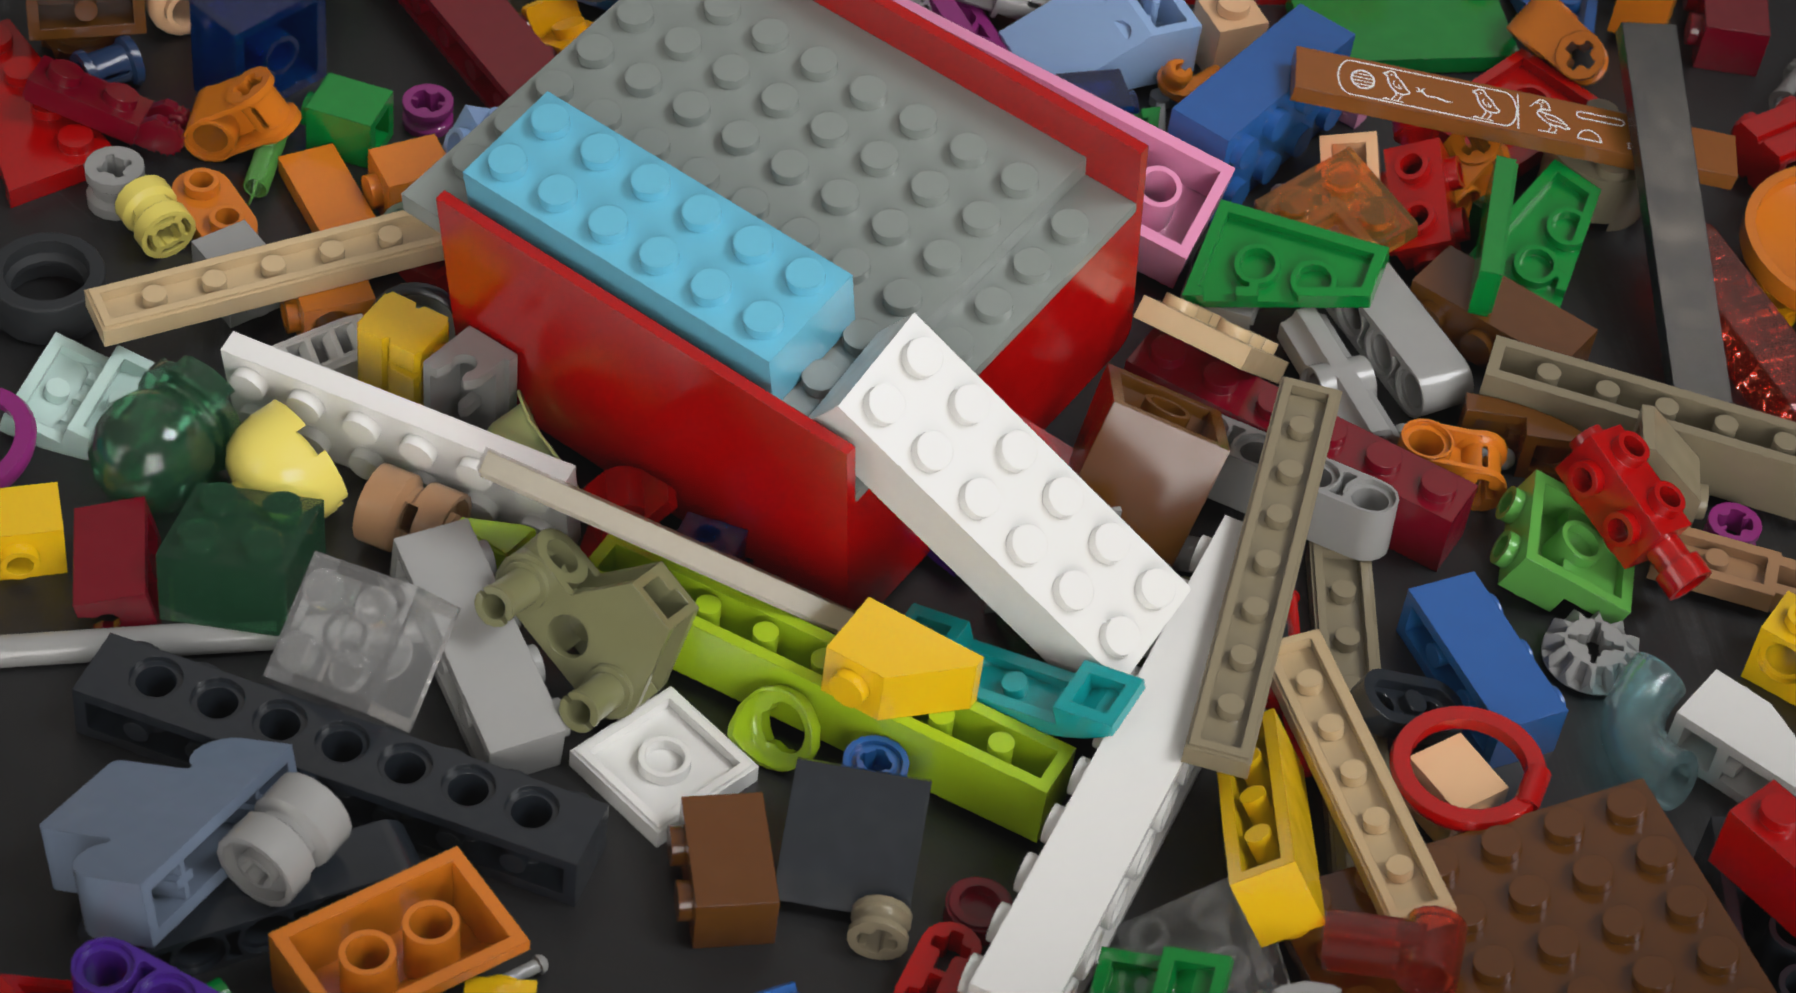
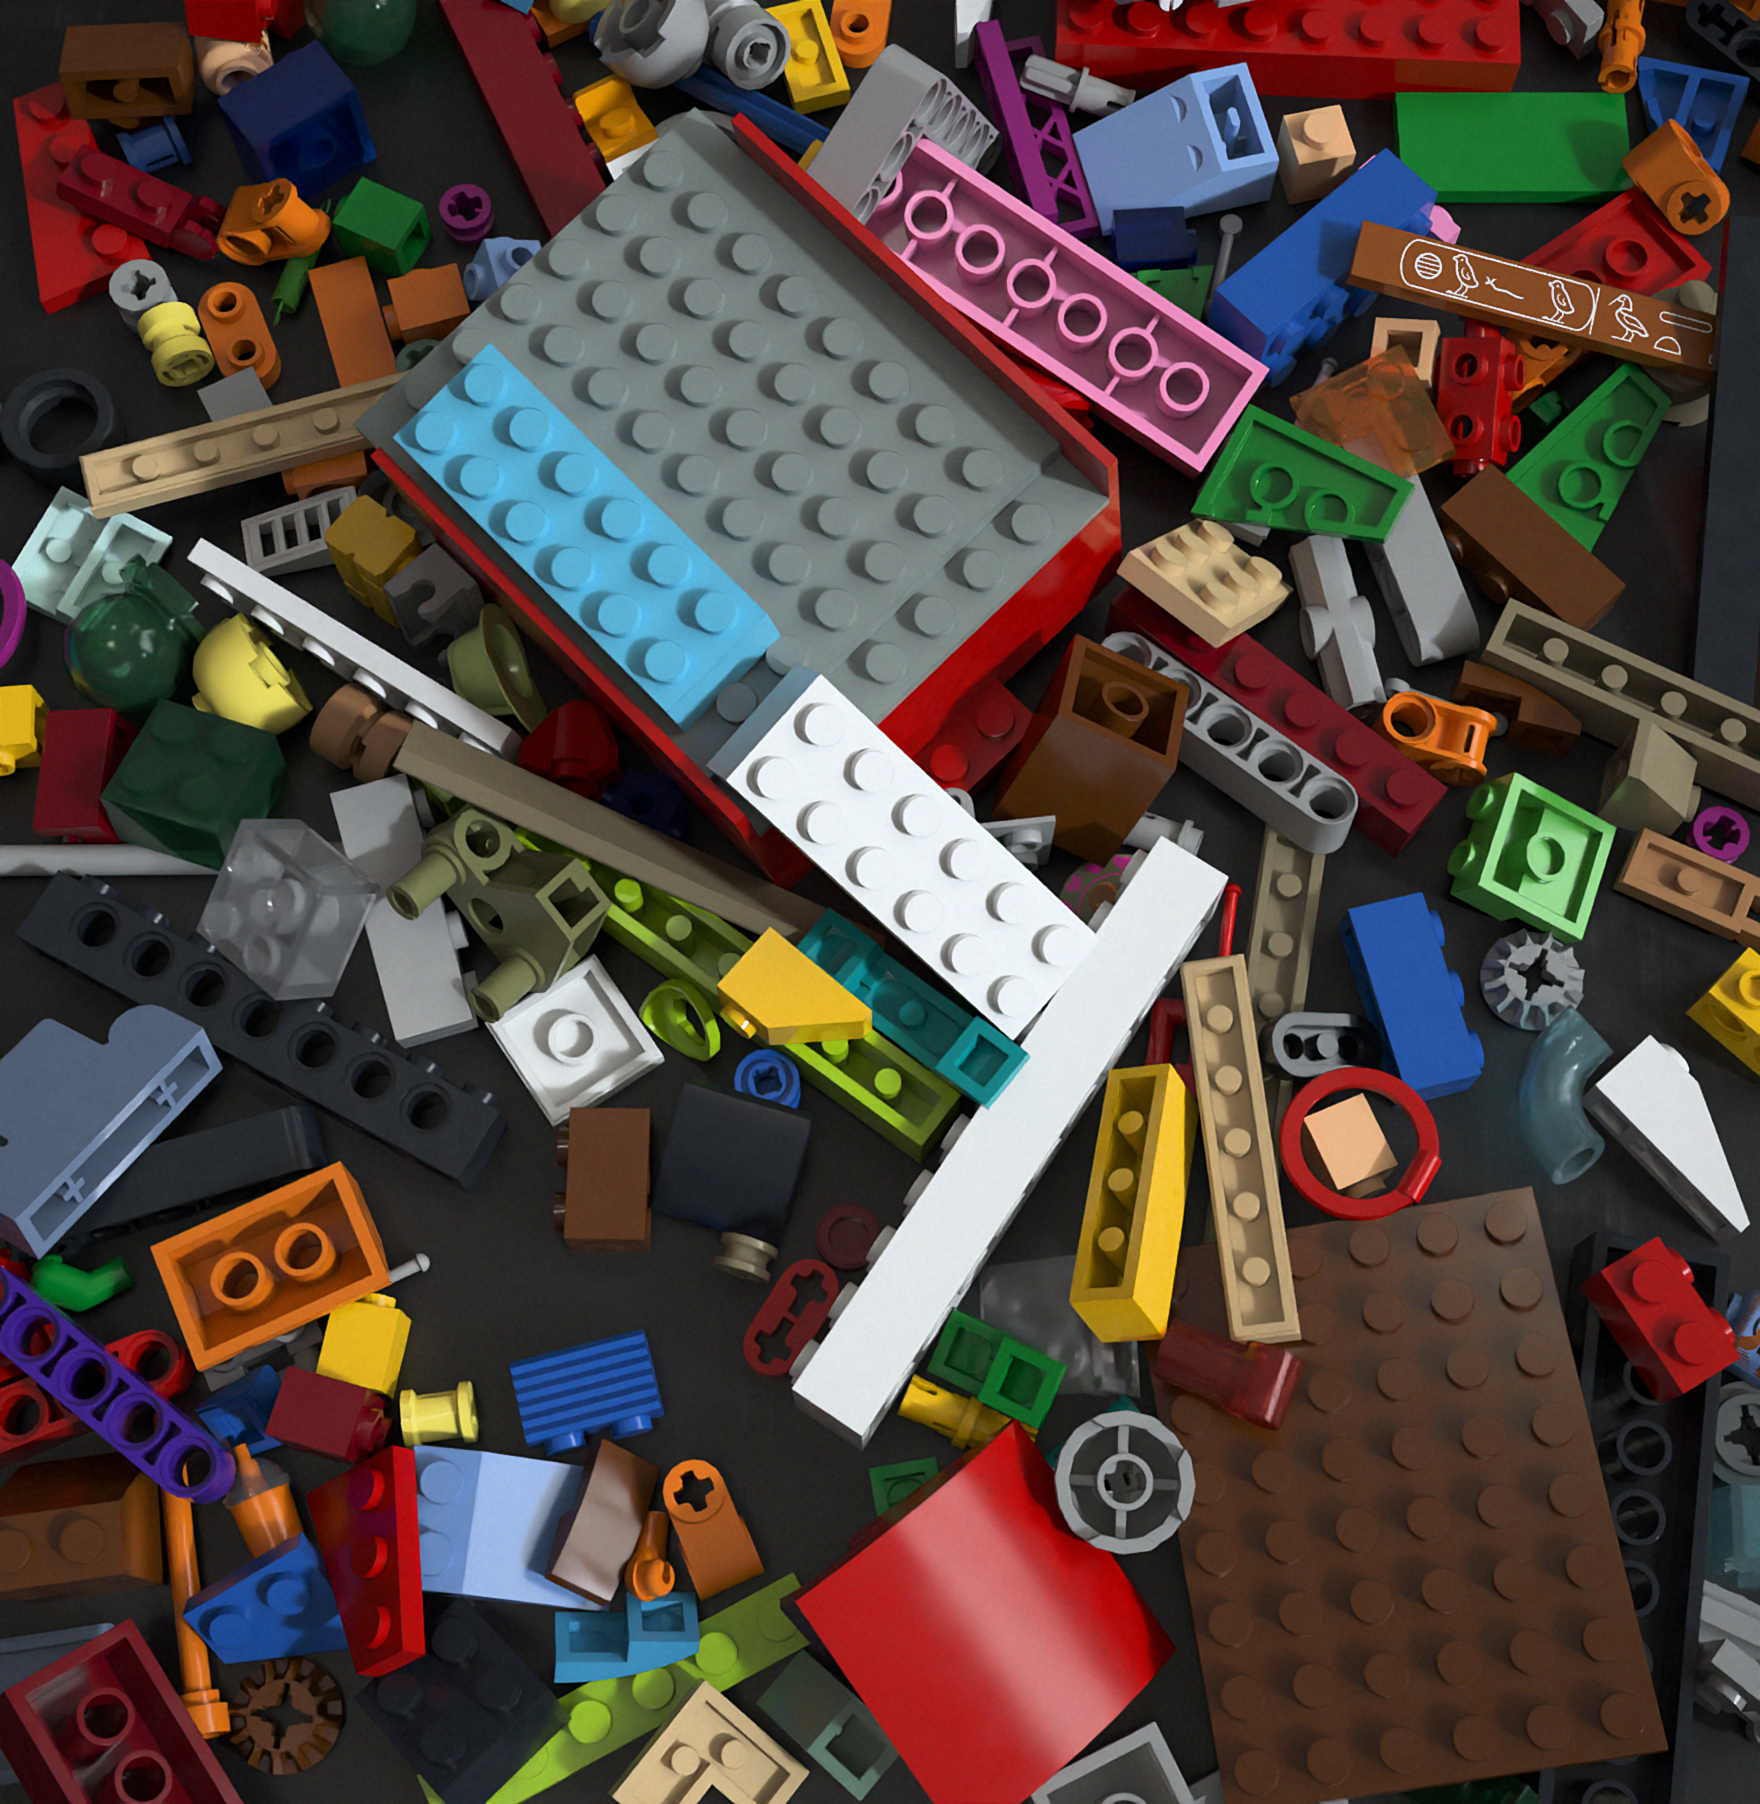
camera: 15 degrees right, 25 degrees up
(284, 839) = (176, 1145): light grey wheel -> none
(1179, 83) = (1261, 220): orange arm -> none
(1262, 580) = (1182, 920): dark tan tile -> none
(1493, 236) = (1534, 467): green tile -> none
(1632, 506) = (1598, 831): red brick -> none

